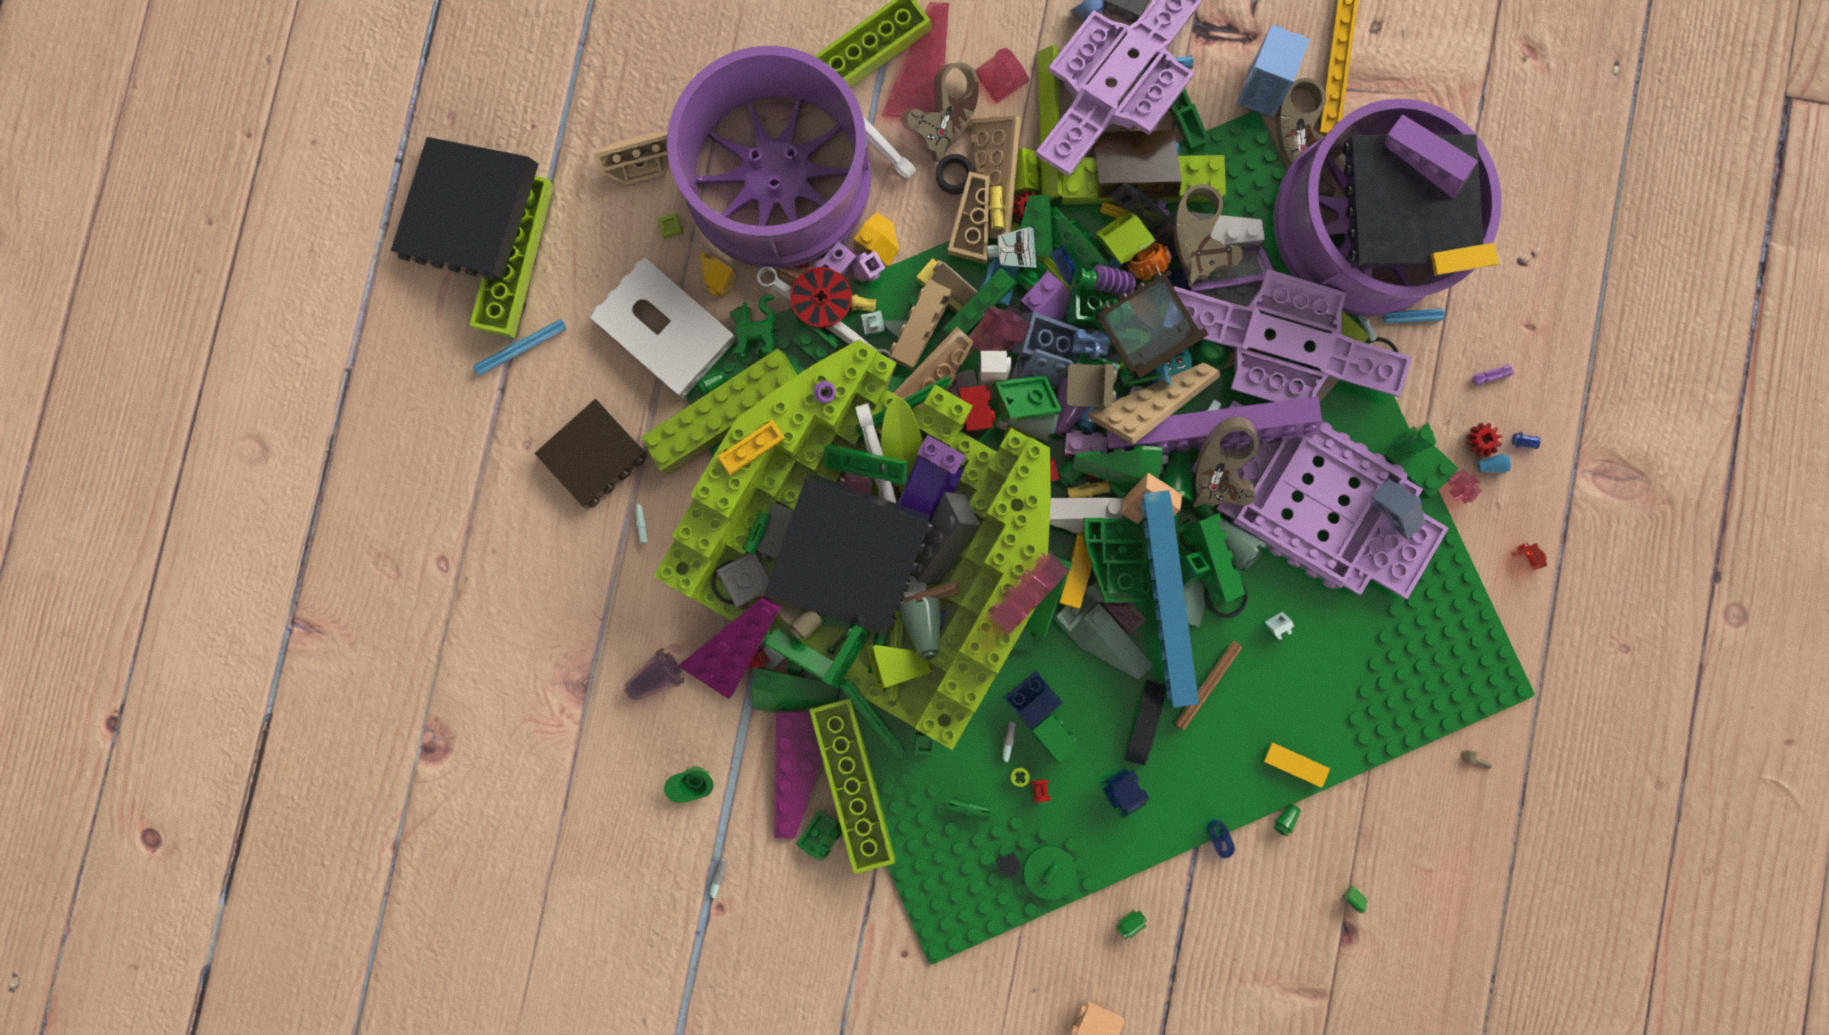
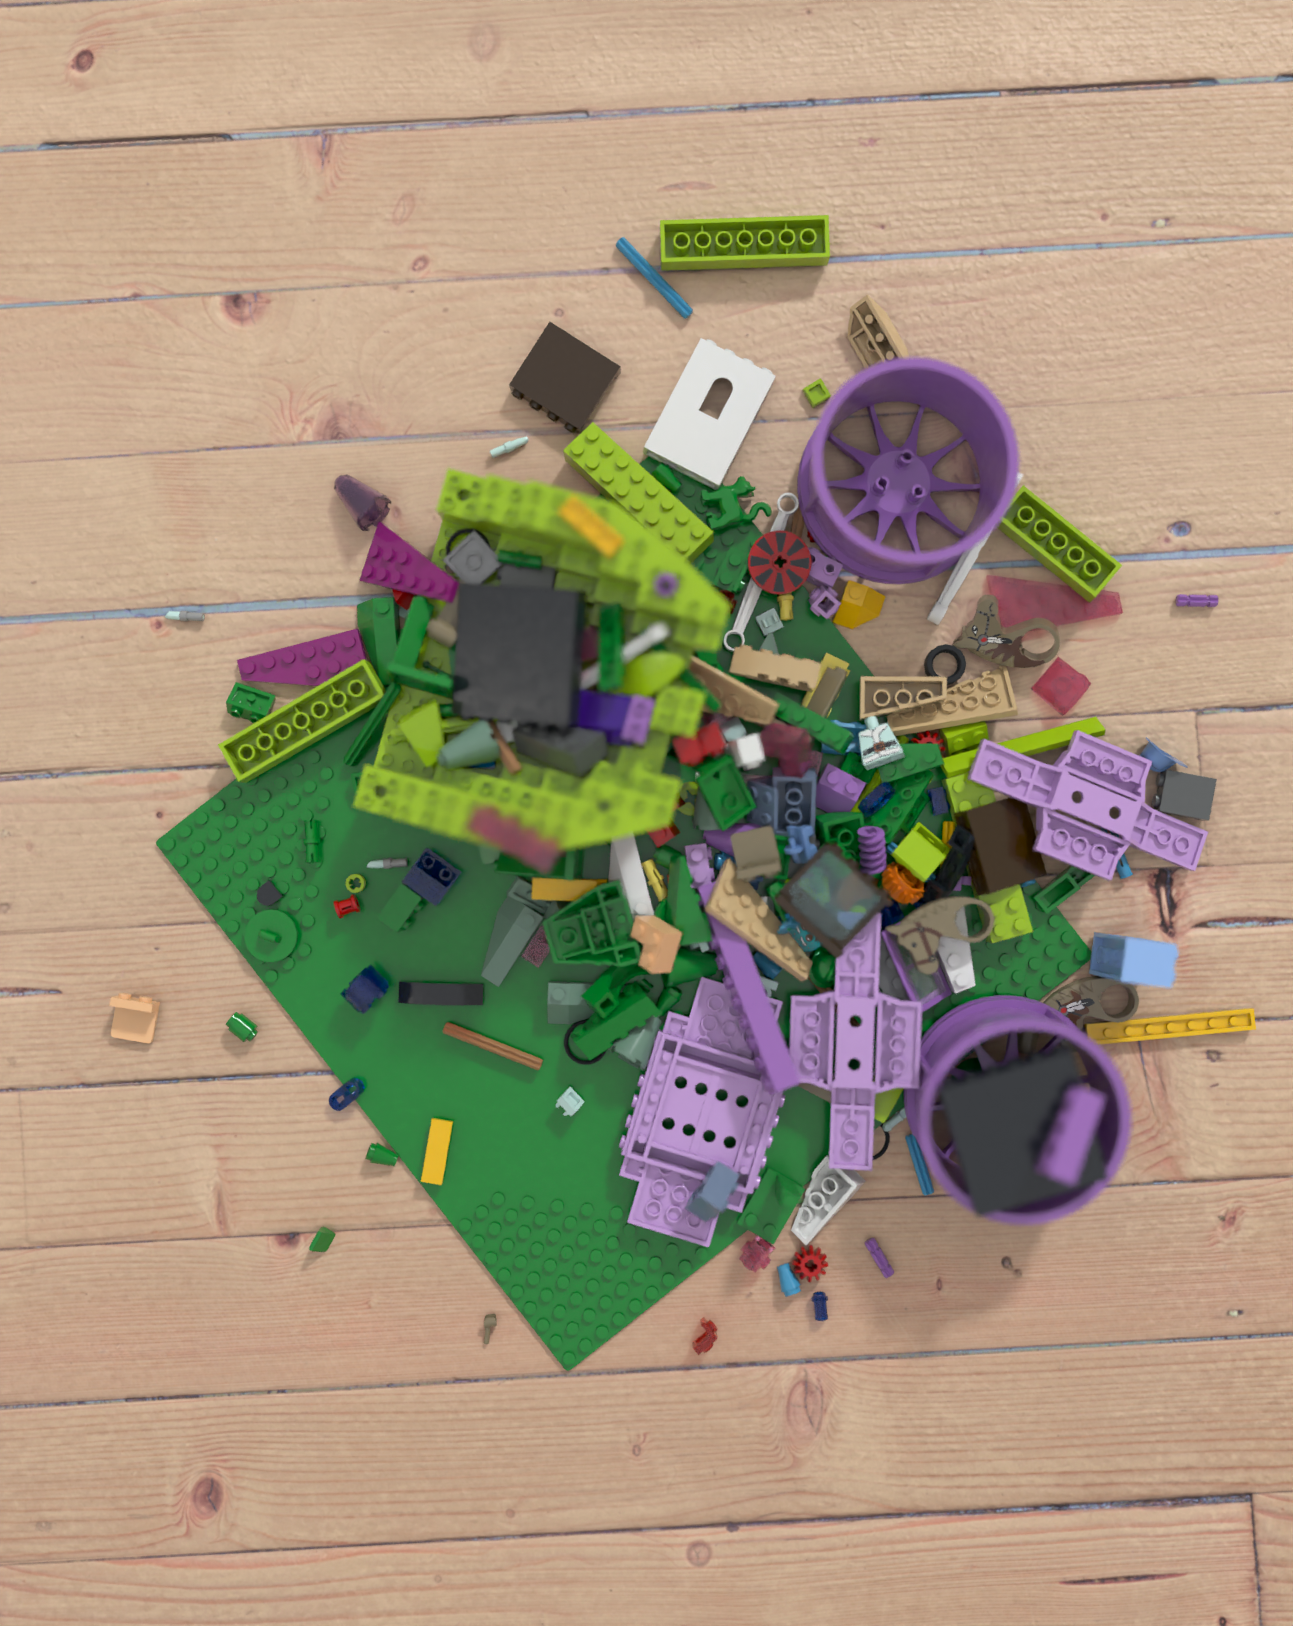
camera: 70 degrees right, 5 degrees up
(464, 208) = (777, 181): black brick -> none
(689, 785) = (265, 563): green piece -> none
(717, 275) = (775, 453): yellow slope -> none
(996, 207) = (917, 714): light yellow pin -> none
(1080, 211) = (938, 800): none -> clear blue piece
(1084, 279) = (865, 821): green wheel -> none
(1171, 599) = (563, 984): dark azure brick -> none
(1196, 404) = (766, 965): none -> dark azure cone
(1216, 466) = (706, 1001): dark tan animal -> none
(1421, 406) = (824, 1198): none -> white wedge
(1464, 259) = (973, 1196): yellow tile -> none

